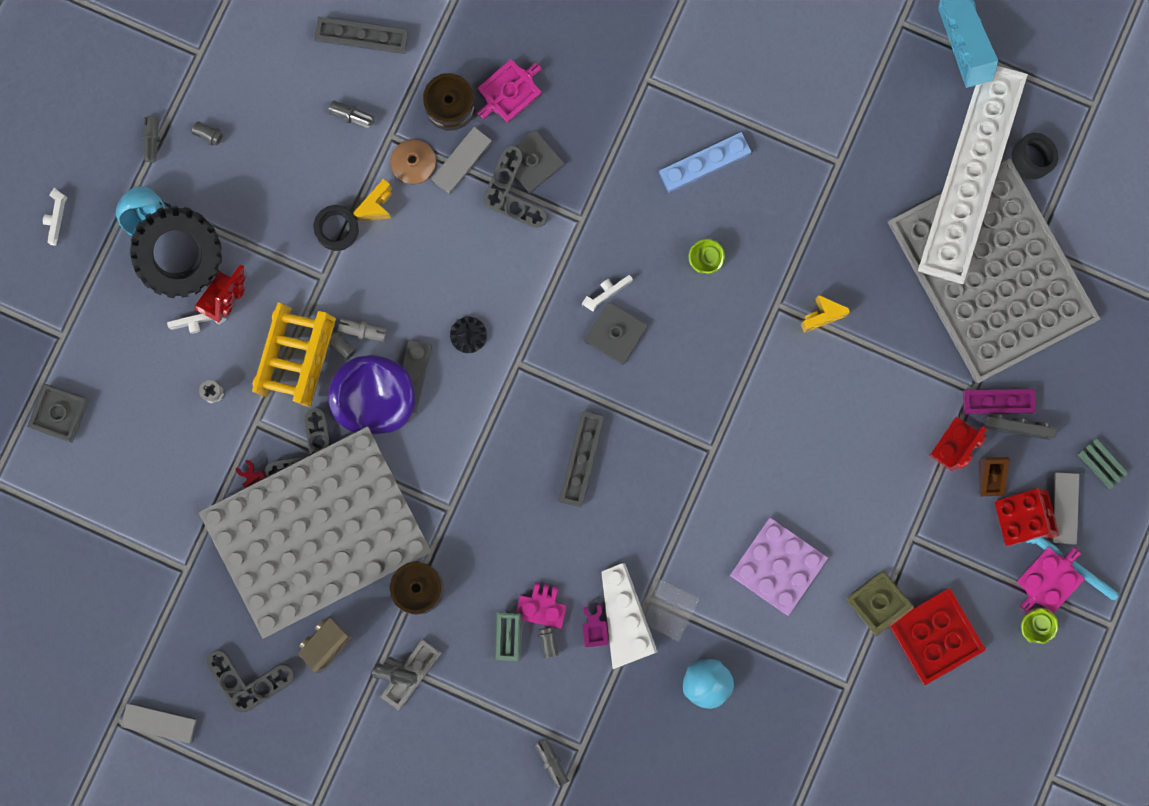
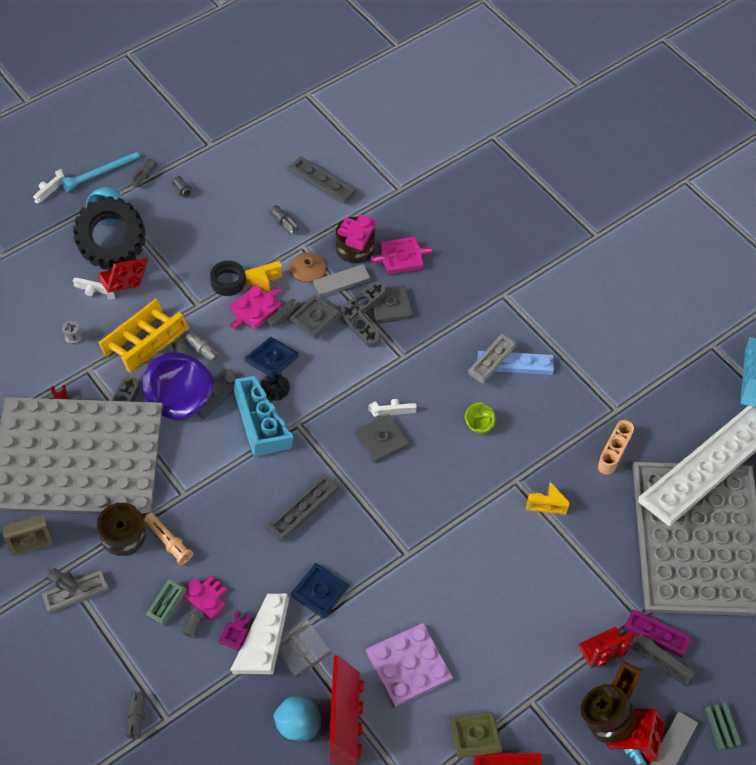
camera: 25 degrees right, 25 degrees down
(76, 199) = (70, 183): none -> medium azure piece
(388, 247) = (255, 307): none -> dark pink plate
(423, 239) = (283, 313): none -> dark grey axle
(445, 302) = (271, 357): none -> dark blue tile
(451, 96) = (357, 231): none -> dark pink hinge
(461, 225) = (315, 317): none -> dark grey plate
(476, 572) = (172, 543): none -> light nougat pin
(478, 384) = (262, 424): none -> medium azure wedge
(649, 538) = (319, 590): none -> dark blue tile
(681, 175) = (492, 358): none -> light grey tile
(750, 656) = (344, 713): none -> red slope
(862, 201) = (619, 440): none -> light nougat beam
(996, 517) = (608, 713): none -> dark brown wheel

